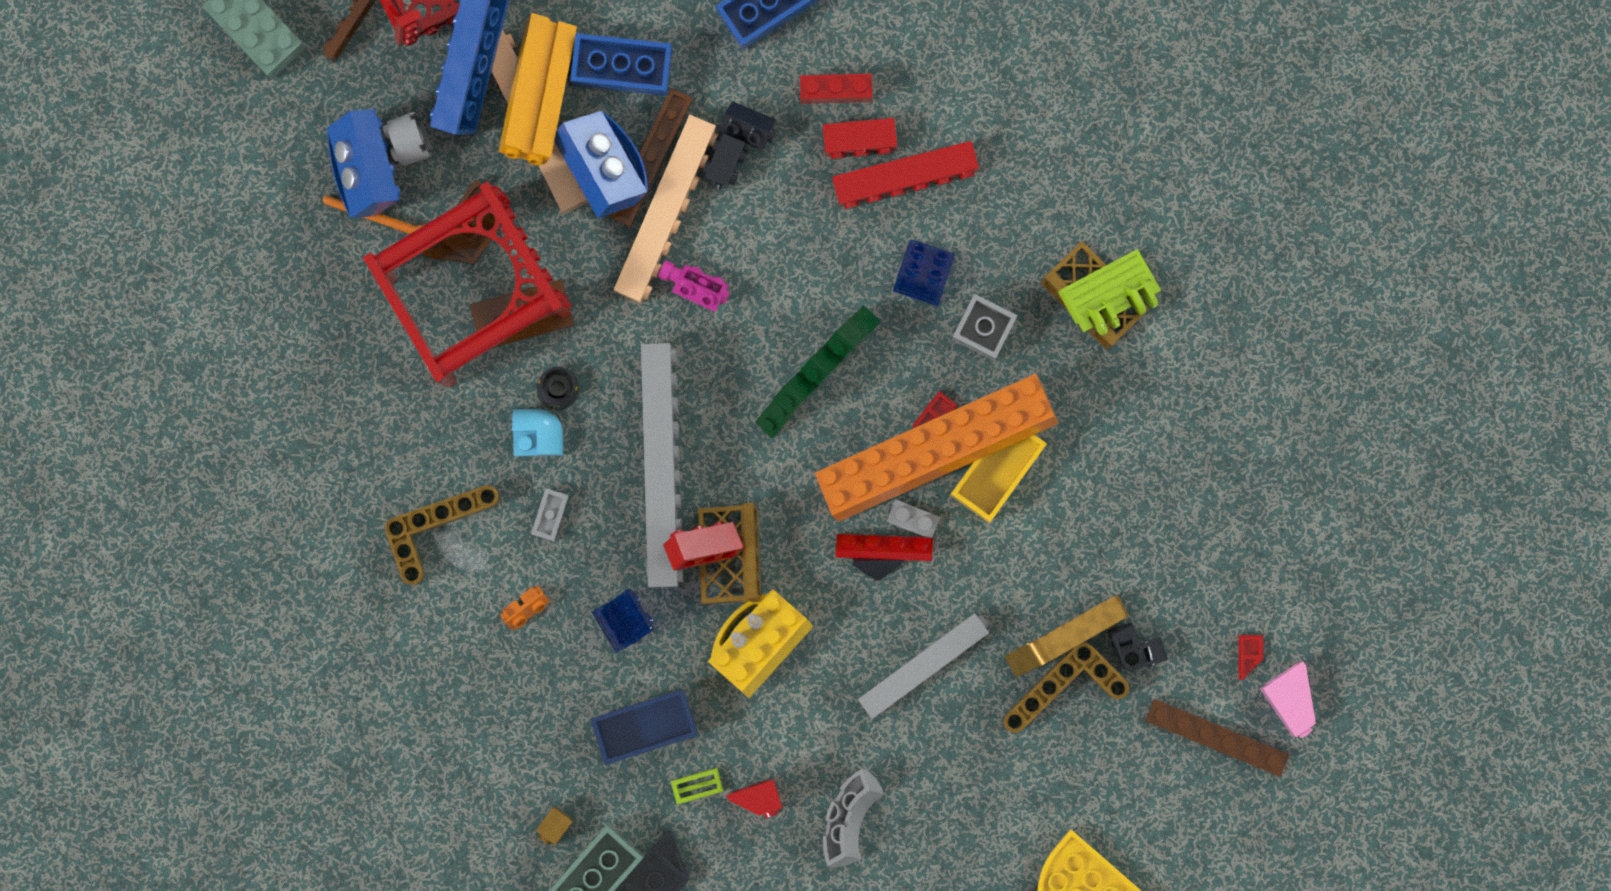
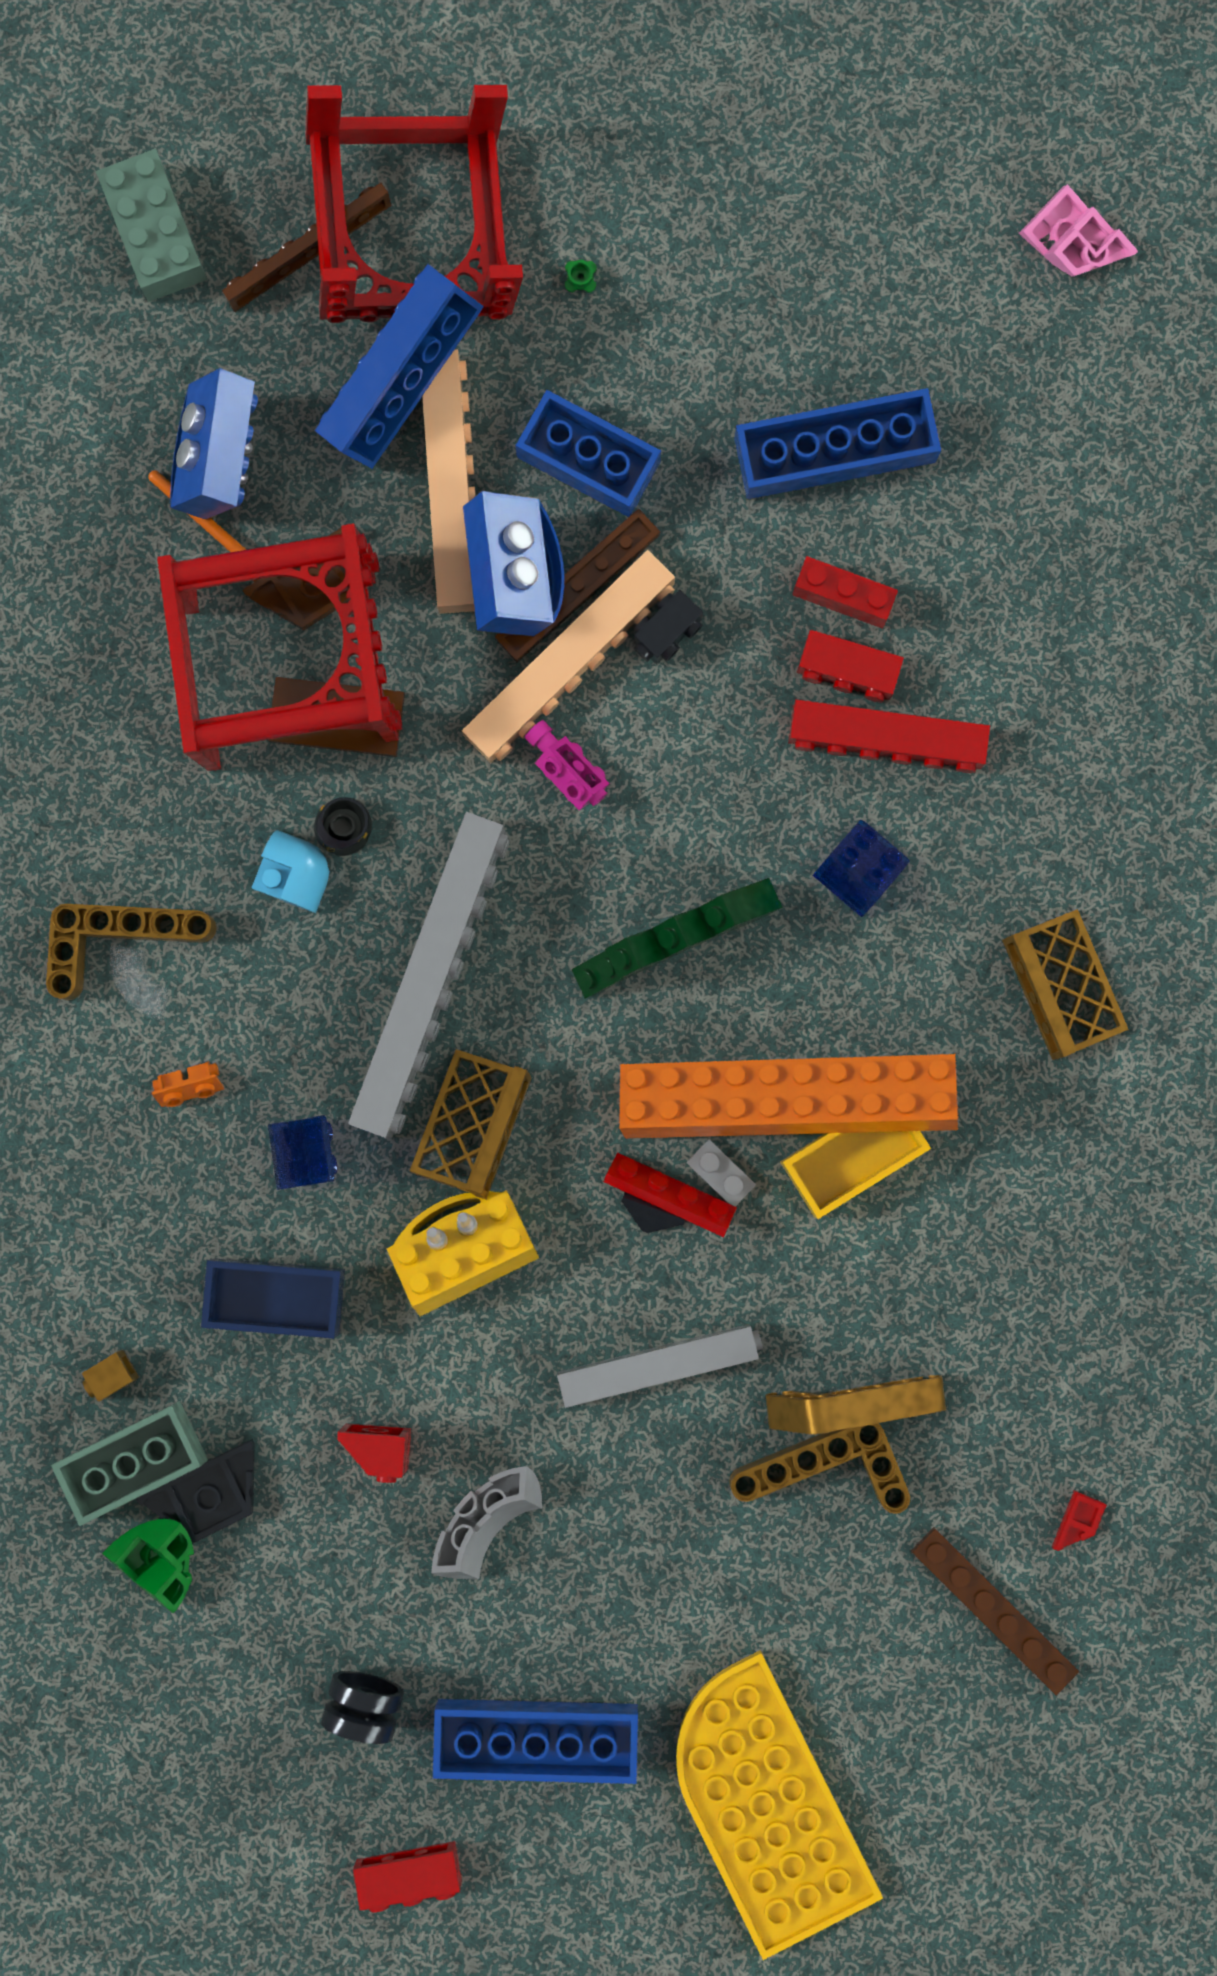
camera: 25 degrees right, 0 degrees up
(408, 139) = (283, 439): light grey brick -> none
(537, 90) = (469, 441): light orange brick -> none
(550, 514) = (267, 980): light grey plate -> none
(702, 545) = (439, 1099): brick -> none
(717, 780) = (339, 1401): lime tile -> none
(748, 125) = (716, 594): black brick -> none
(937, 407) = (808, 1045): red tile -> none
(984, 327) = (910, 968): light grey brick -> none
(1107, 292) = (1085, 987): lime hinge -> none
(1126, 641) = (929, 1441): black piece -> none
(1292, 699) = (1111, 1603): bright pink slope -> none

